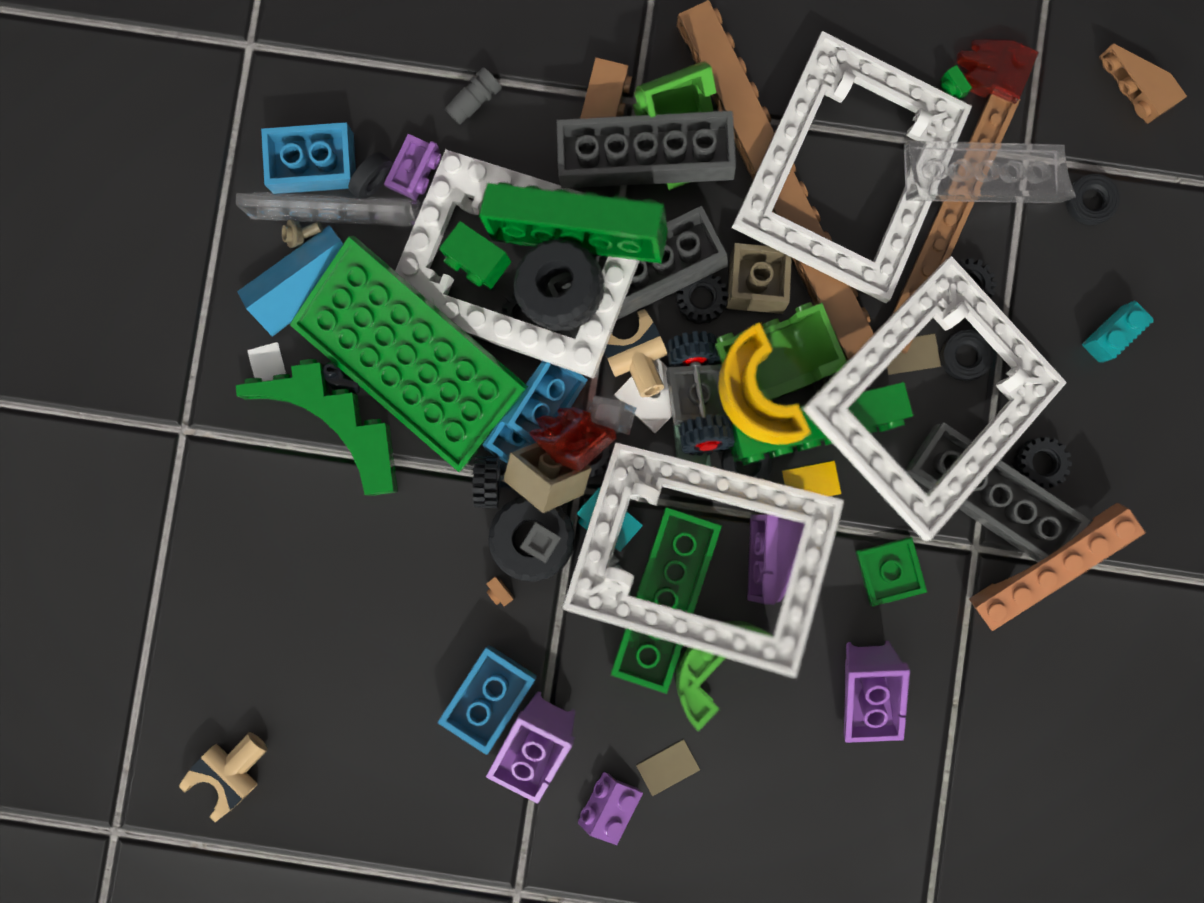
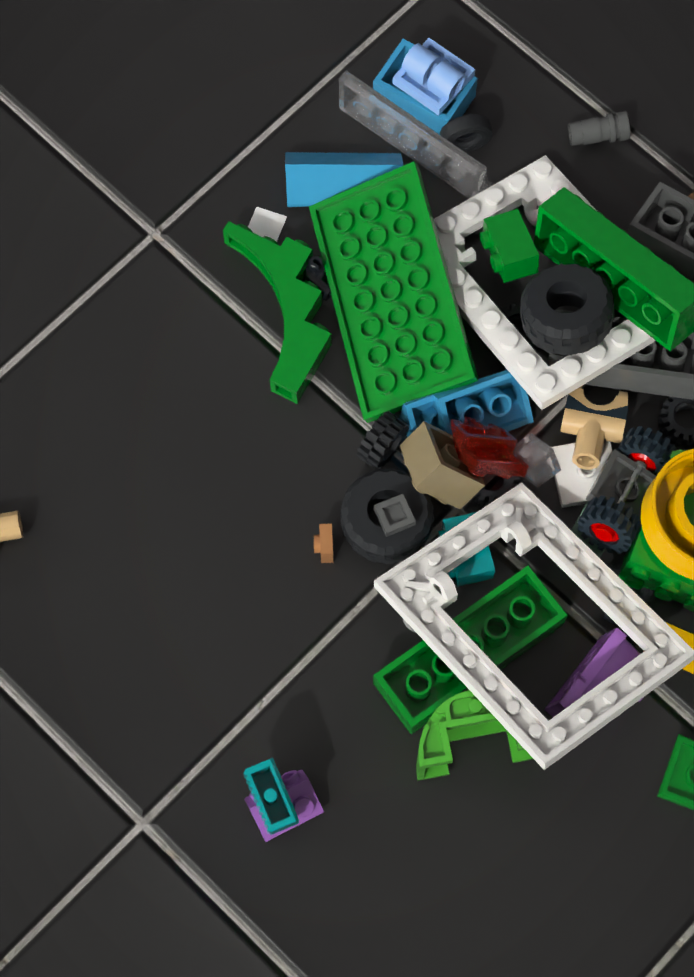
camera: 35 degrees right, 15 degrees down
(295, 235) = (366, 142): dark tan plate -> none
(310, 147) = (433, 75): none -> light blue plate
(412, 167) = (507, 151): medium lavender bracket -> none
(487, 699) = (247, 624): dark azure brick -> none
(534, 749) = (253, 693): medium lavender piece -> none
(602, 824) = (271, 796): none -> teal brick
(668, 767) = (362, 809): dark tan sticker -> none
(874, 694) = (603, 869): medium lavender piece -> none

